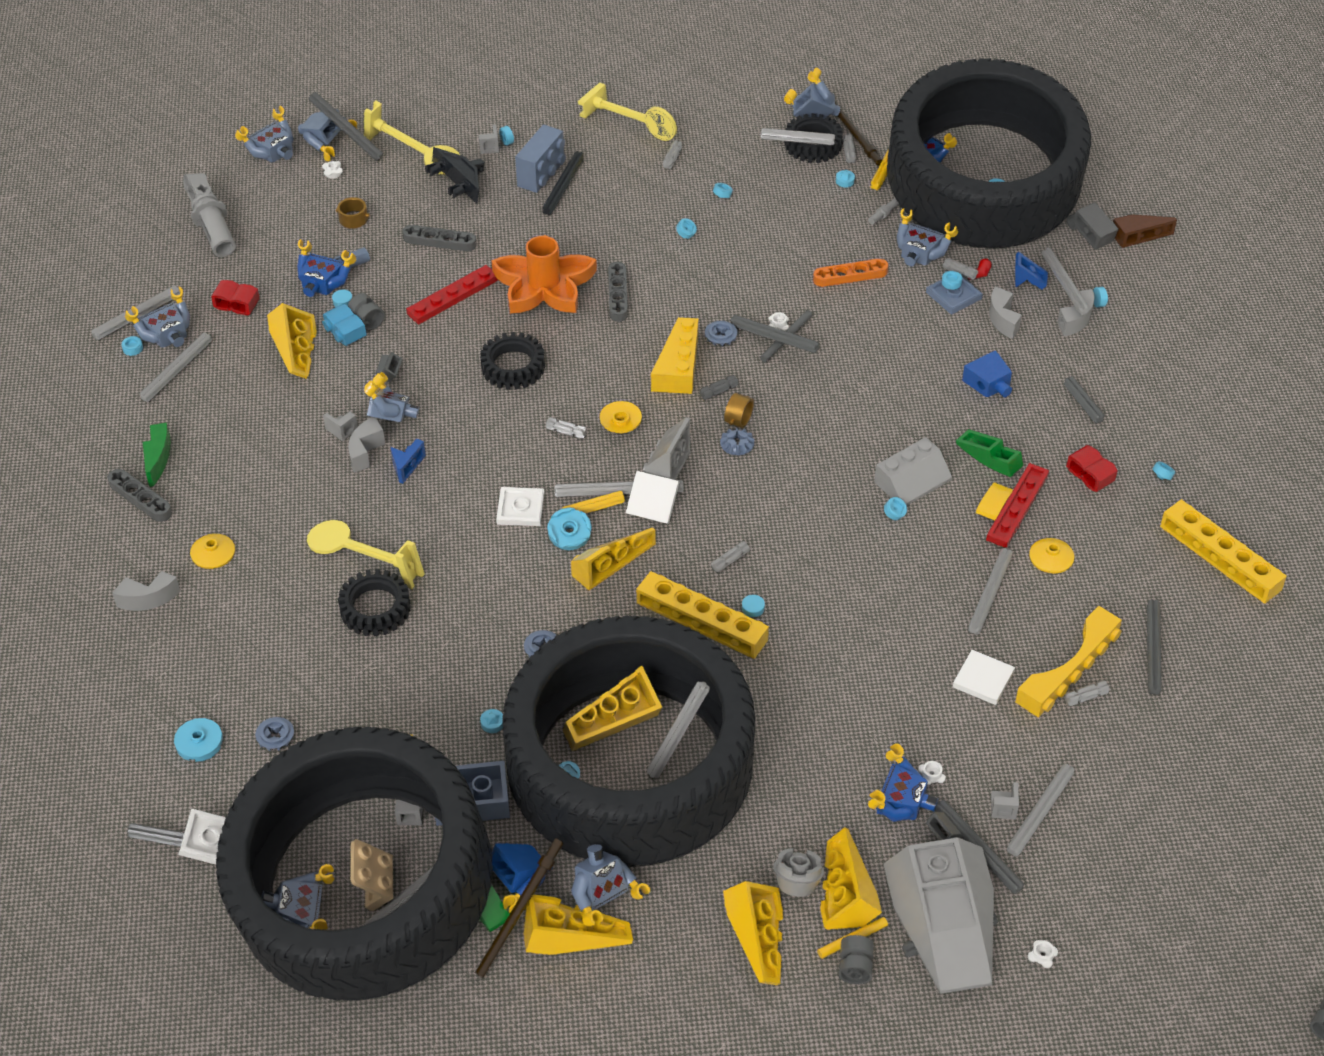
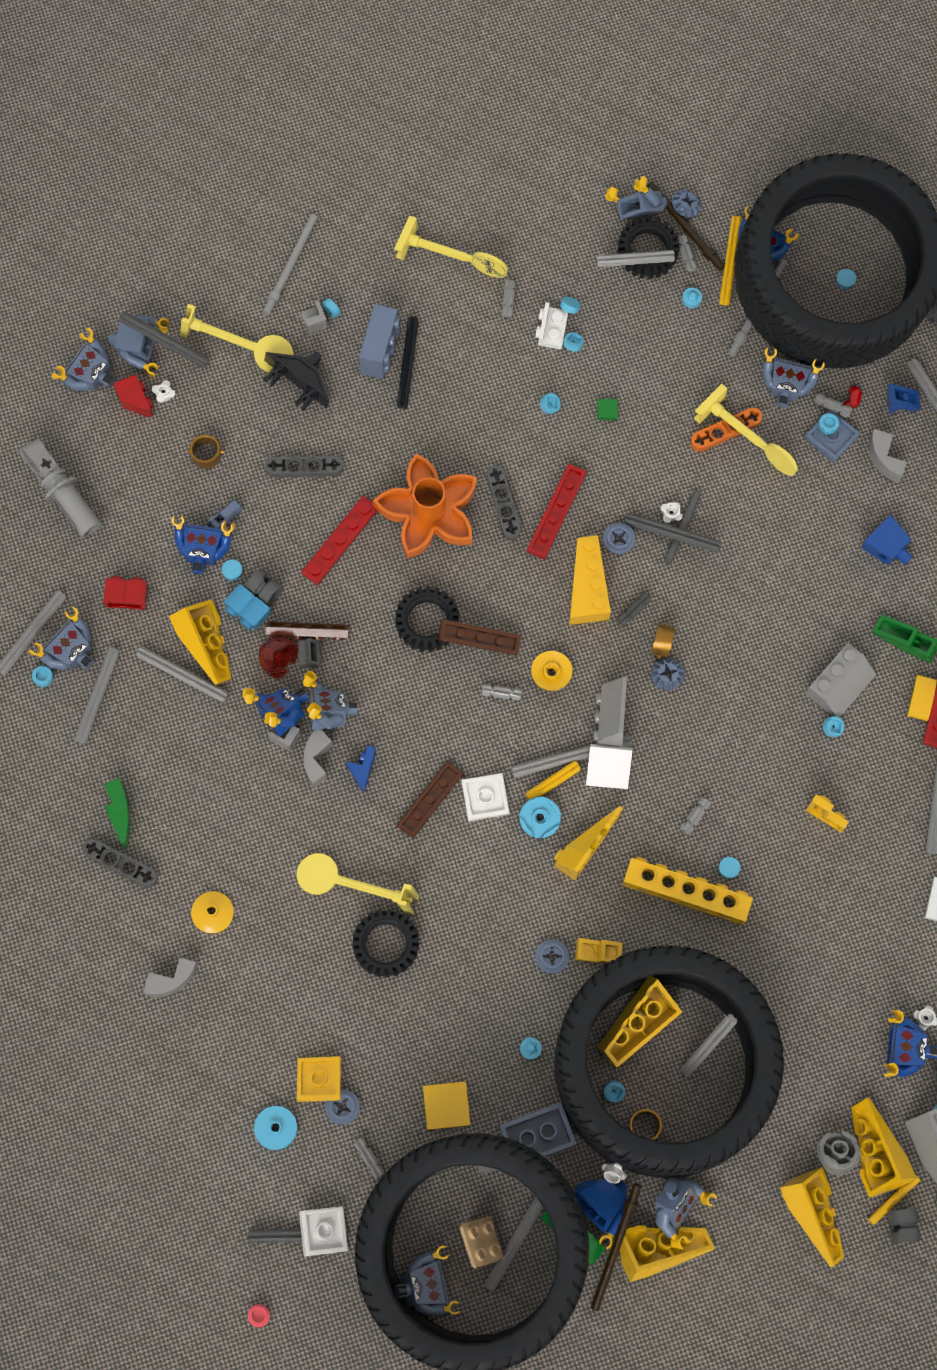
camera: 15 degrees left, 25 degrees up
(108, 904) = (258, 1315): none -> coral plate
(260, 703) = (319, 1079): none -> yellow tile
(263, 364) = (182, 674): none -> light grey axle
(304, 166) = (132, 397): none -> red slope
(340, 399) = (278, 709): none -> blue torso
(358, 361) = (277, 655): none -> clear red cylinder
(383, 347) = (314, 630): none -> reddish brown plate
(459, 121) = (274, 295): none -> light grey bar
(464, 499) = (430, 799): none -> reddish brown tile
(535, 838) = (613, 1172): none -> white plate
(557, 377) = (479, 637): none -> reddish brown plate
(665, 304) = (556, 511): none -> red plate
(705, 177) = (552, 328): none -> white bracket
(727, 165) = (570, 305): none -> medium azure tile
(740, 242) = (607, 409): none -> green tile
(859, 114) = (683, 207): none -> sand blue gear
(861, 571) = (821, 809): none -> yellow plate
(893, 287) = (776, 455): none -> light yellow piece

